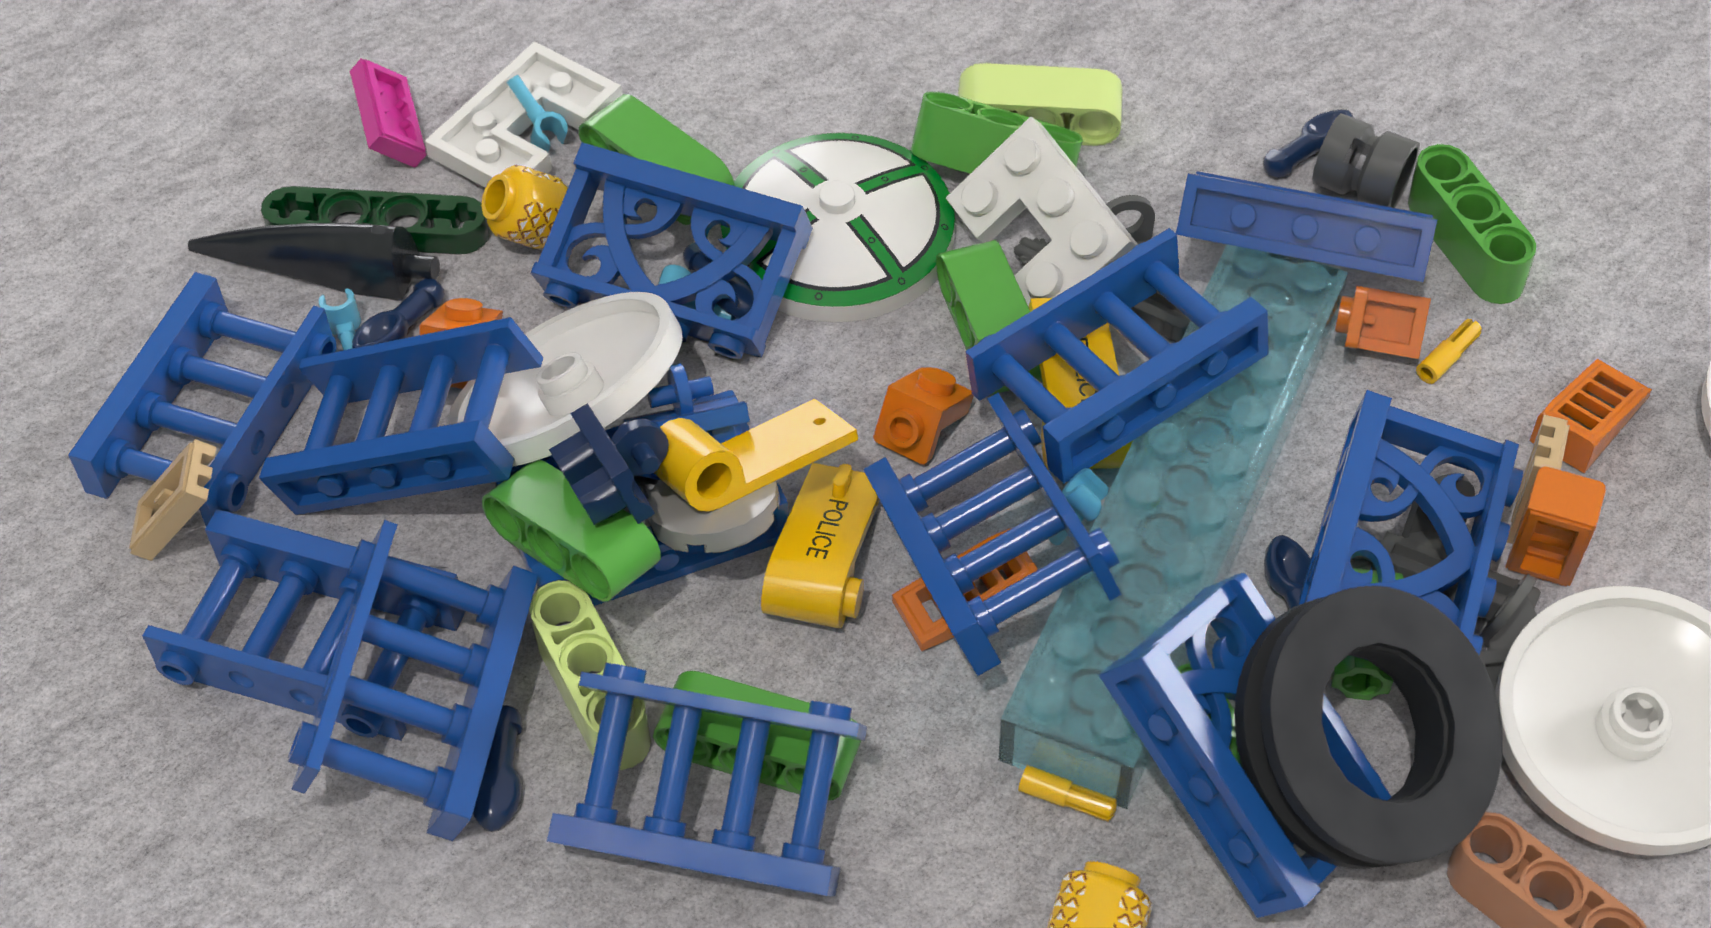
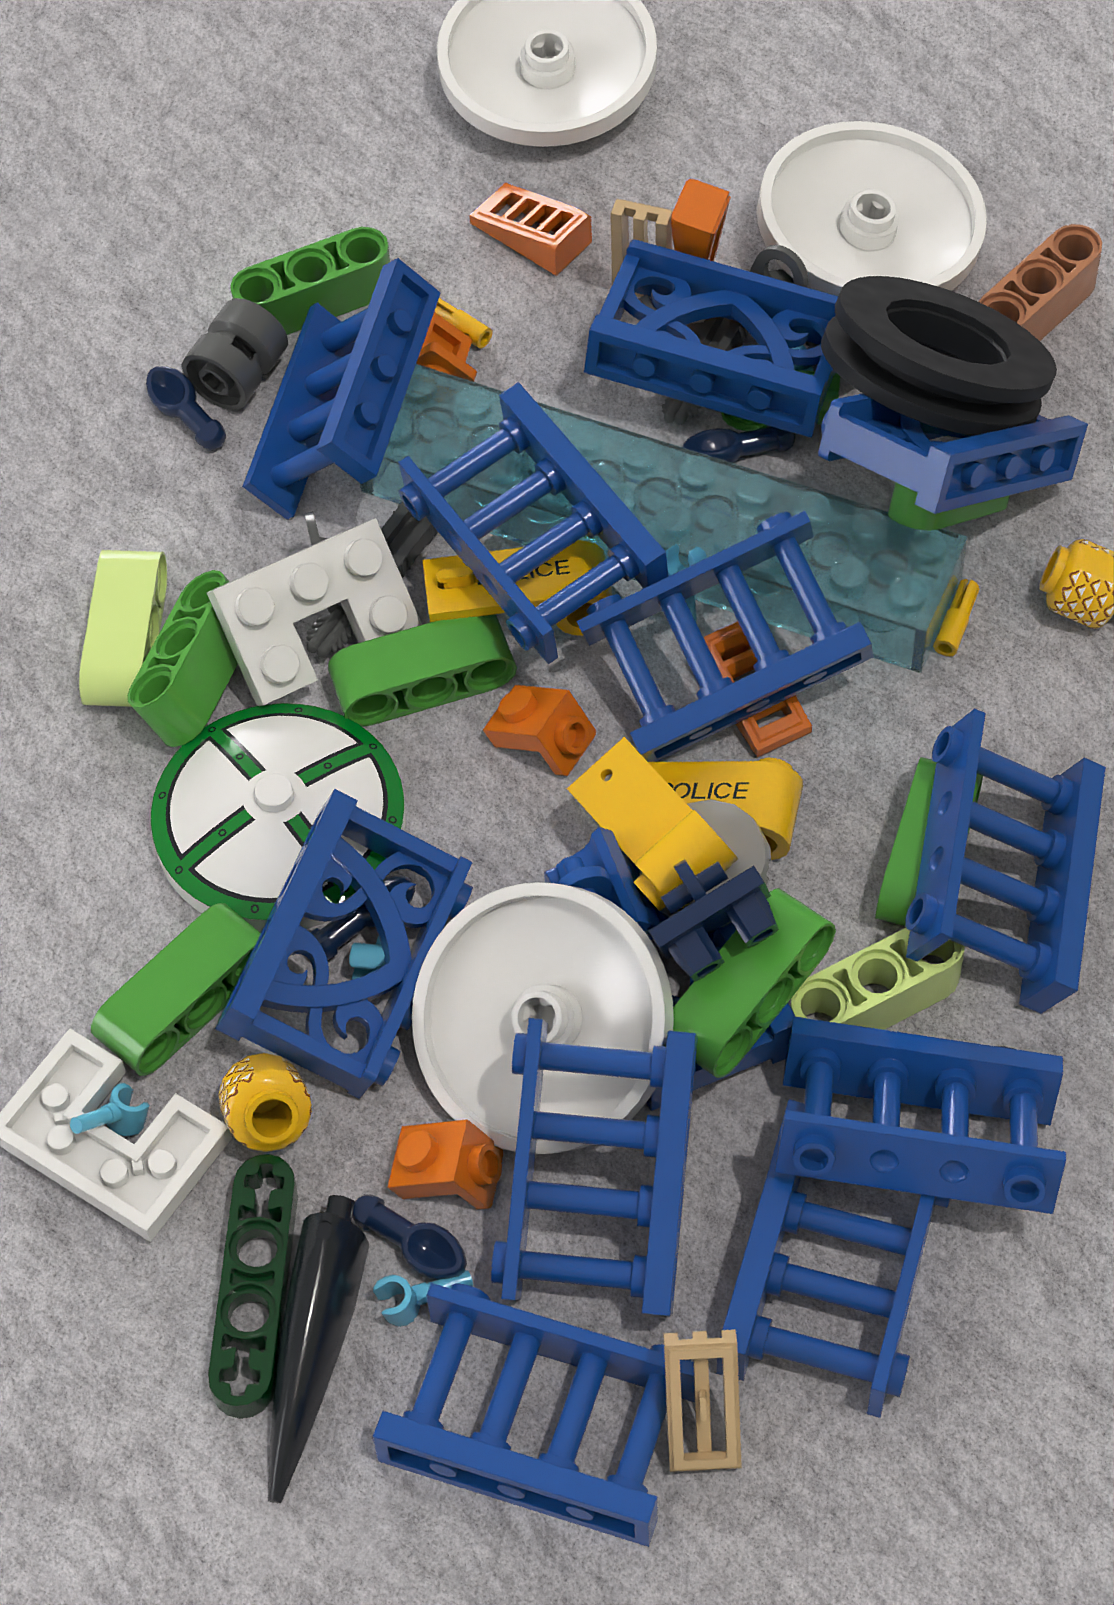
camera: 90 degrees left, 5 degrees up
(387, 112) = (88, 1285): dark pink plate -> none

